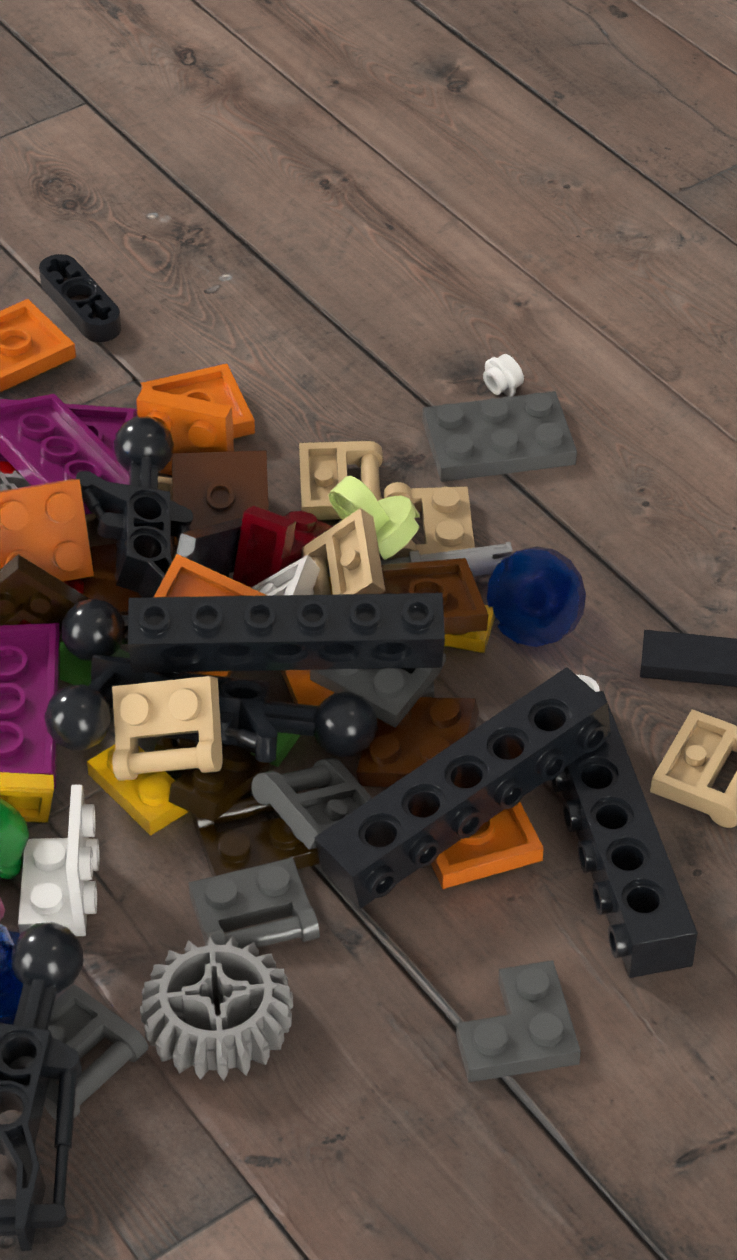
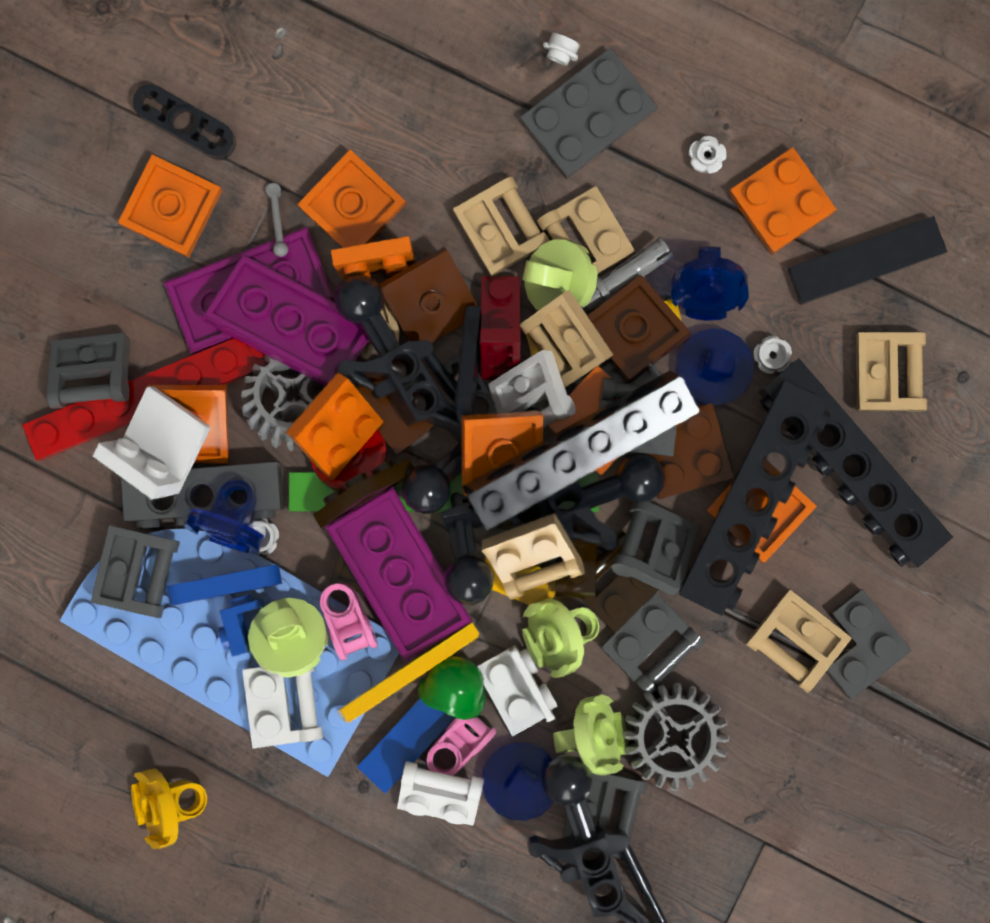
camera: 20 degrees left, 40 degrees up
(119, 947) = (595, 735): none -> yellowish green tile
(124, 378) = (273, 192): none -> light grey hinge
(145, 836) = (555, 636): none -> yellowish green tile
(454, 971) = (805, 629): none -> tan plate
(498, 674) = (715, 366): none -> clear blue tile
(608, 511) = (700, 162): none -> white plate
(671, 579) = (782, 201): none -> orange plate

